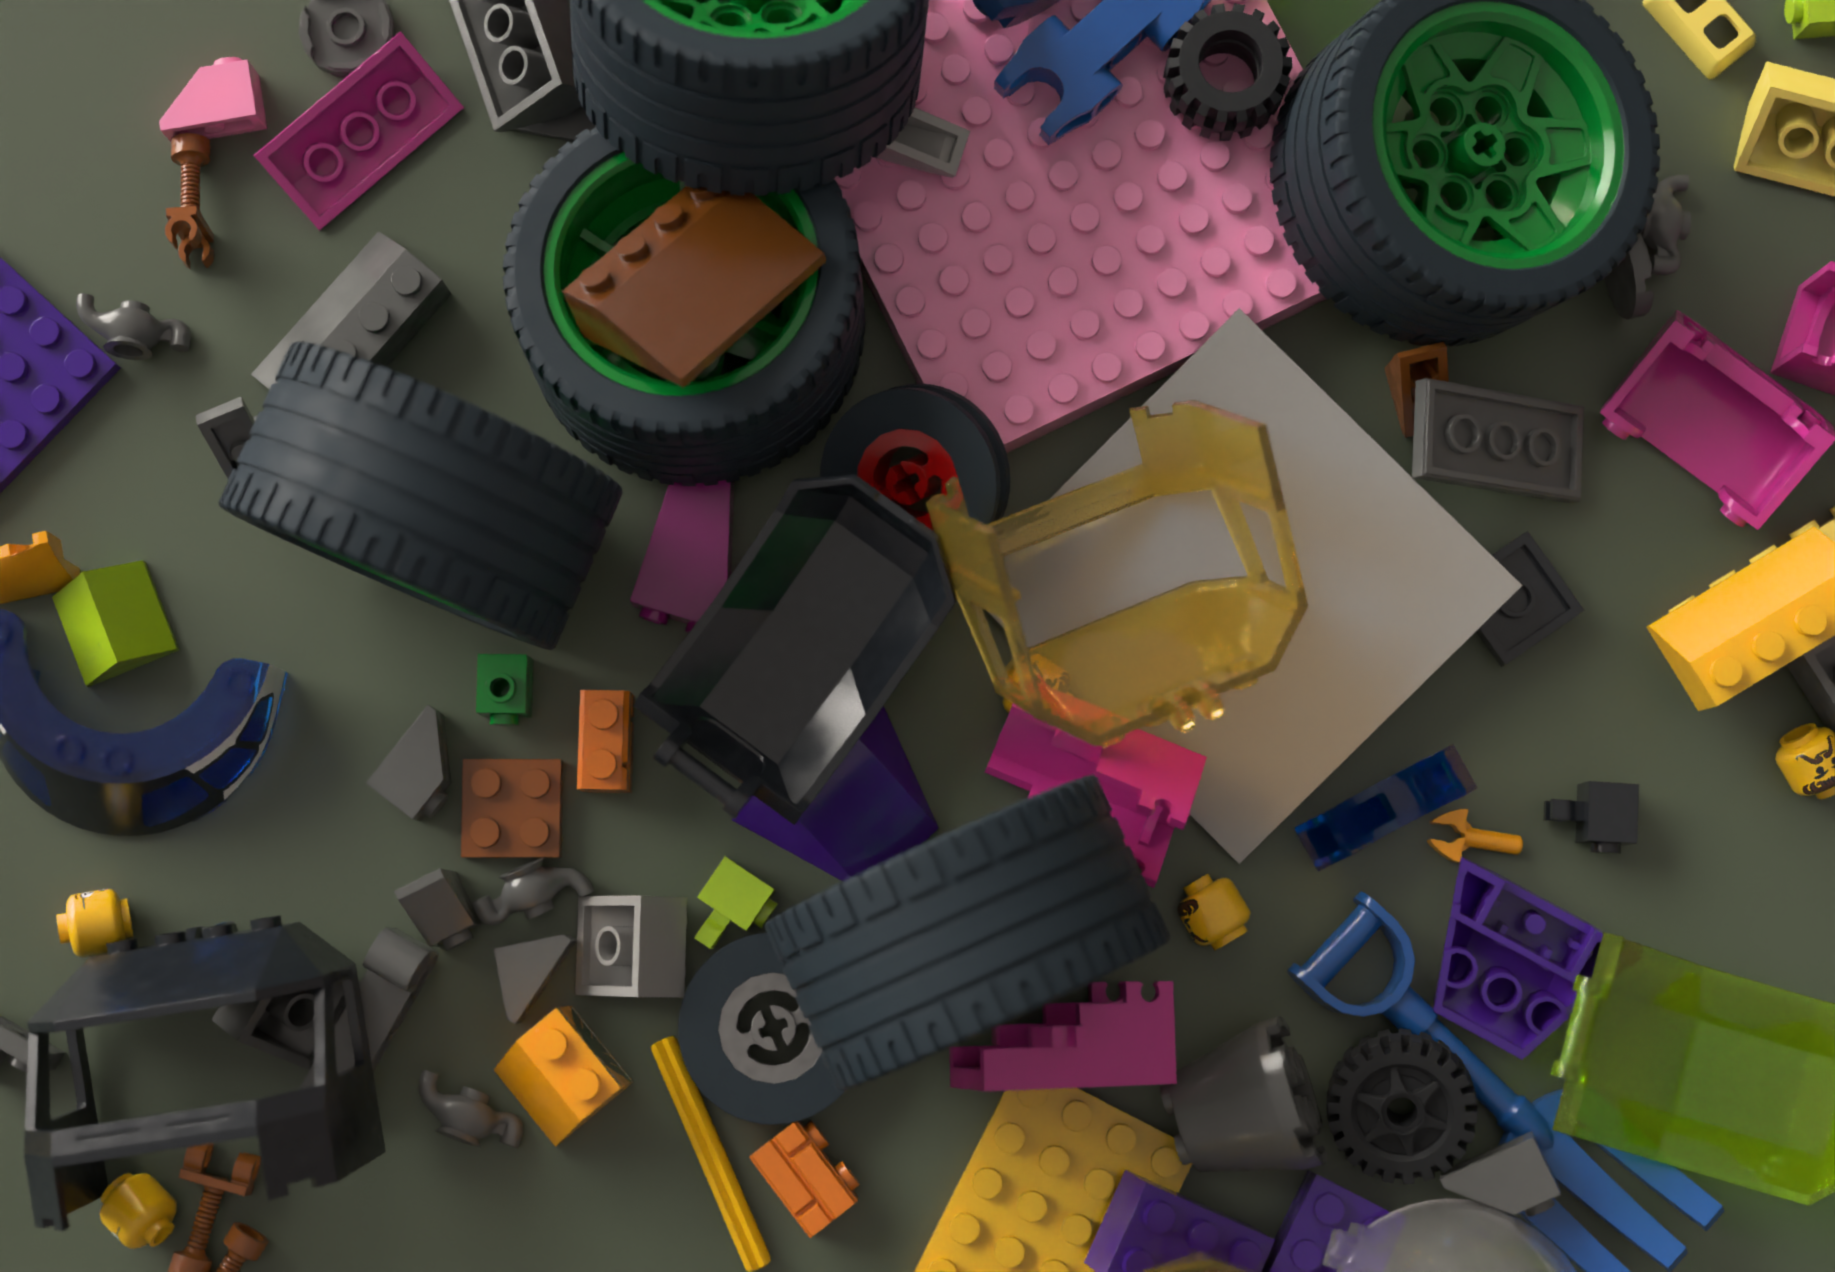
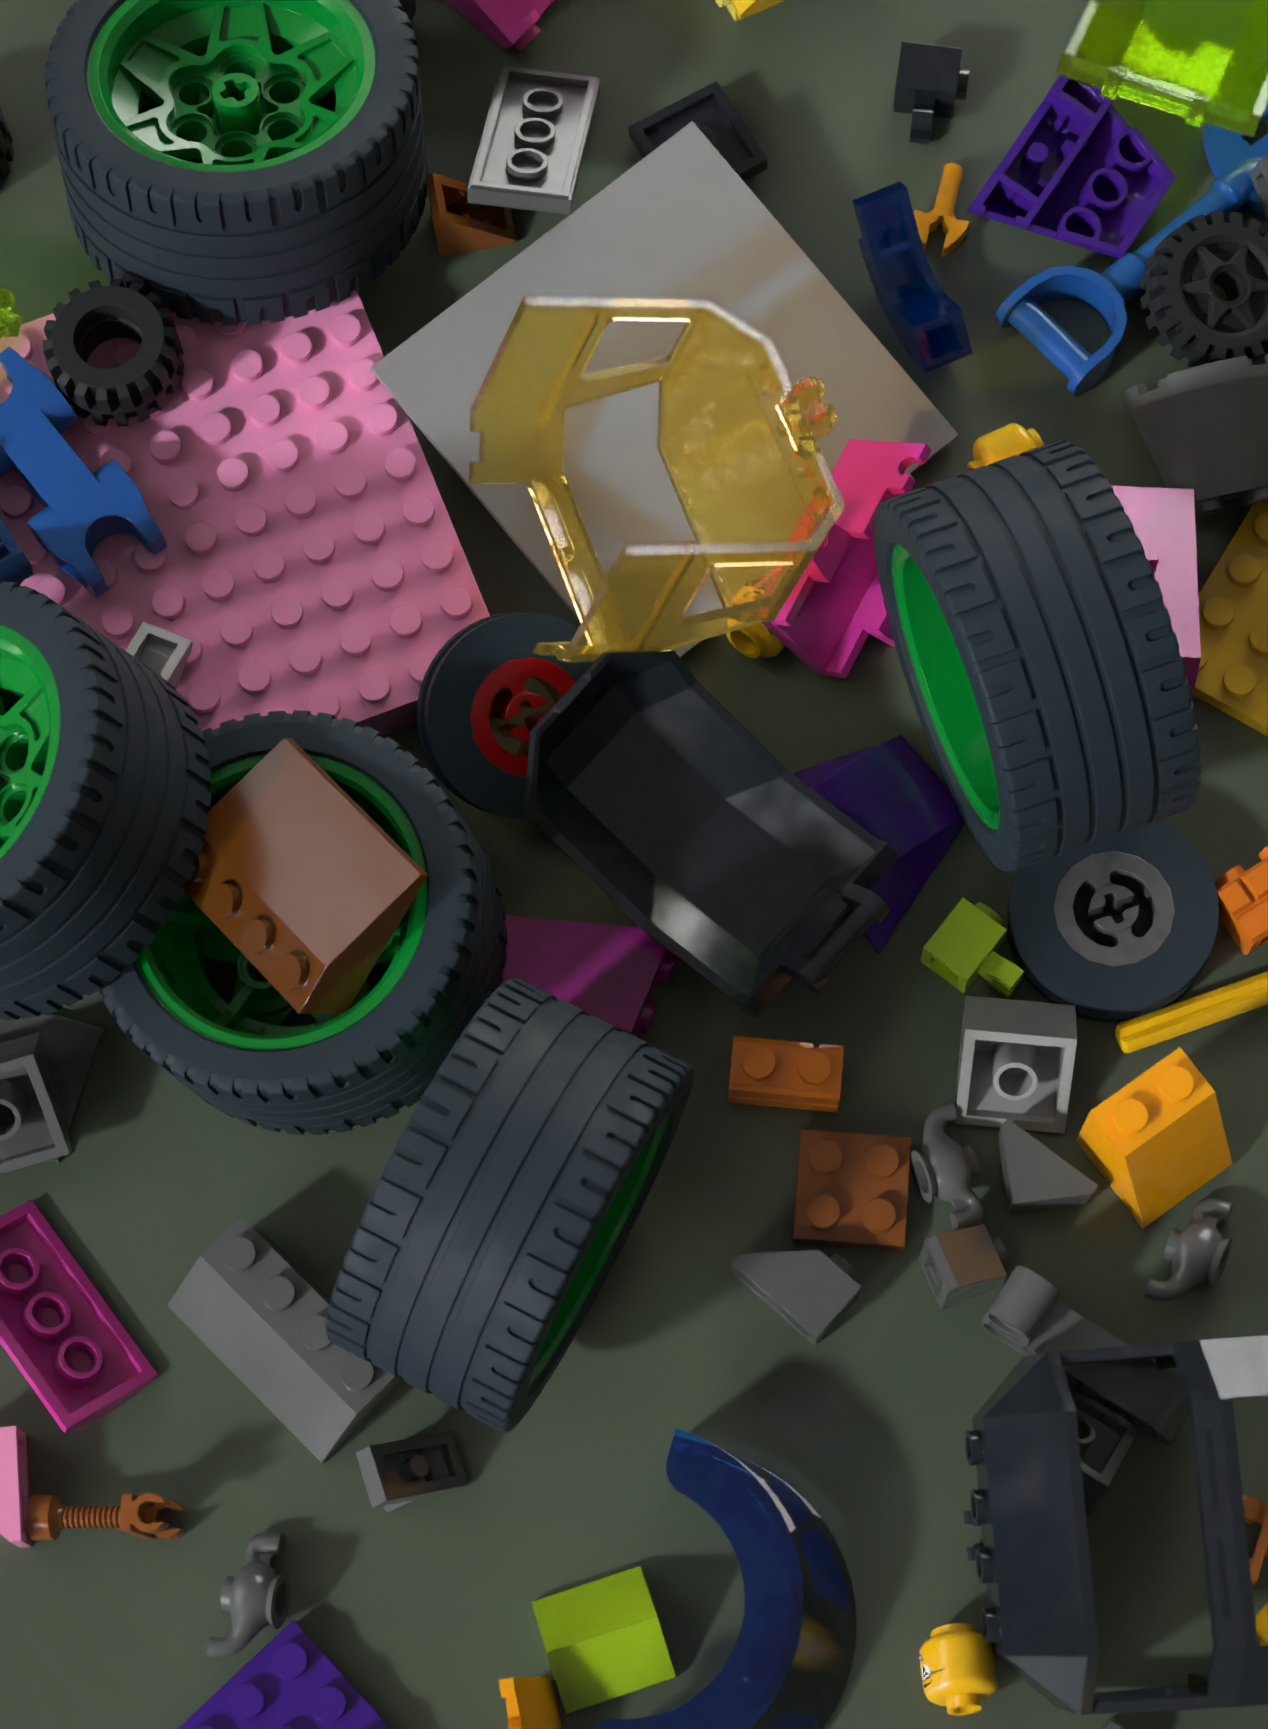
camera: 80 degrees left, 10 degrees down
(504, 688) = (716, 1184): green brick -> none

